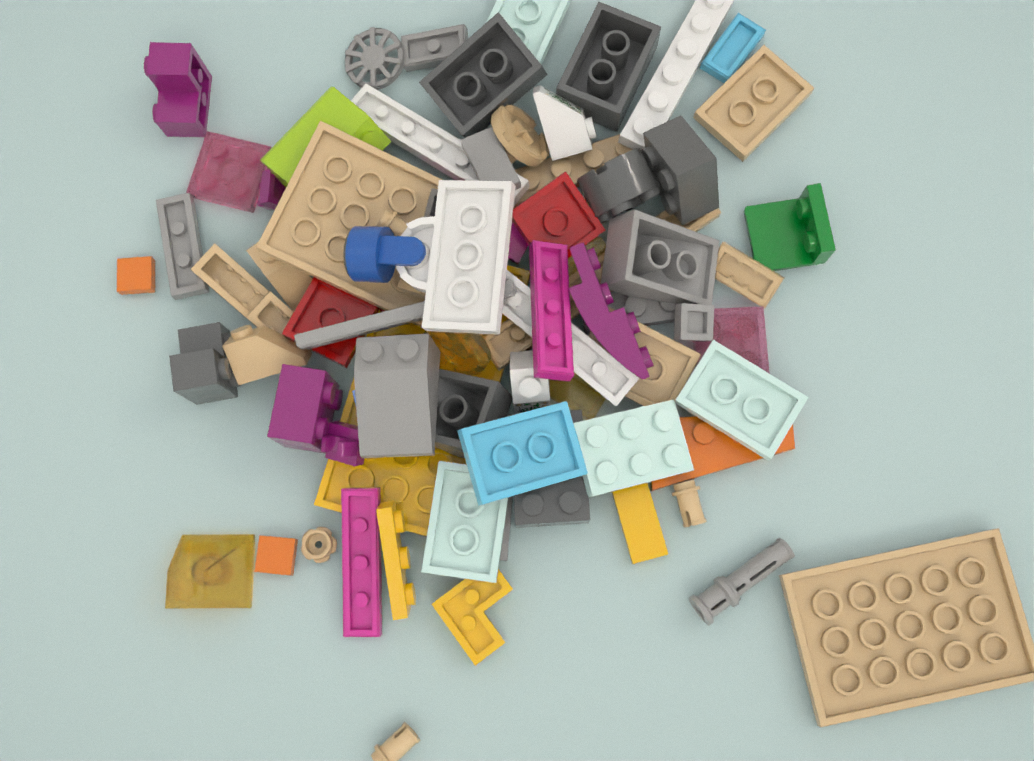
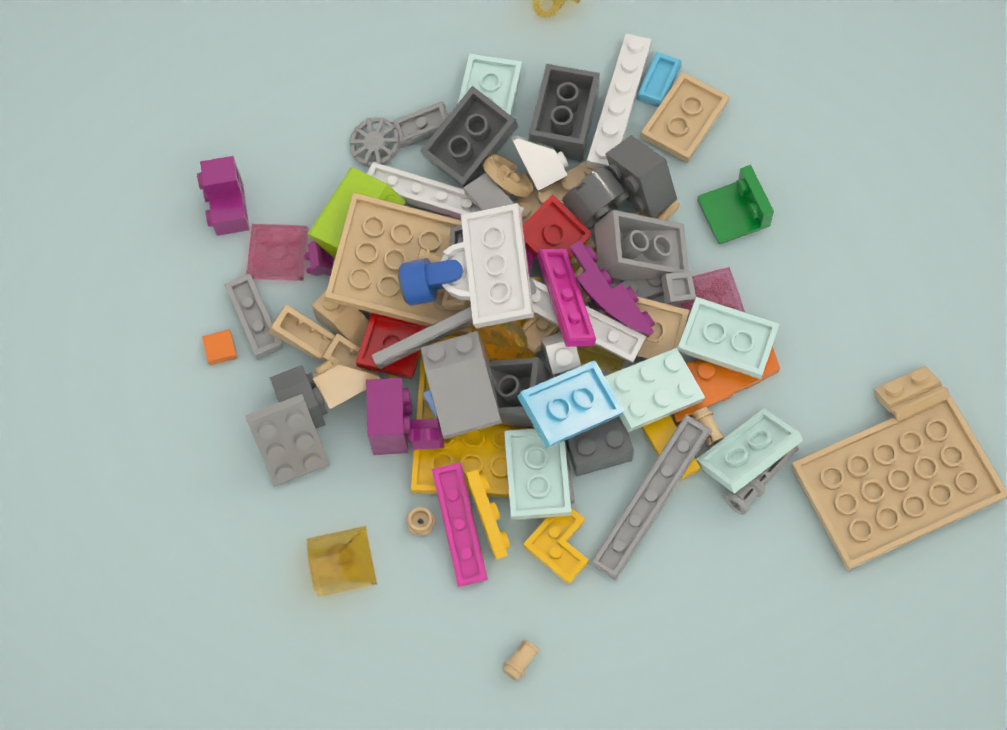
camera: 15 degrees left, 10 degrees down
(175, 415) = (287, 440): none -> light grey plate
(276, 555) = (388, 537): orange tile -> none
(599, 579) = (650, 497): none -> light grey tile
(733, 549) = (749, 450): none -> light aqua plate
(746, 275) = (711, 246): tan plate -> none
(951, 518) = (911, 393): none -> tan plate

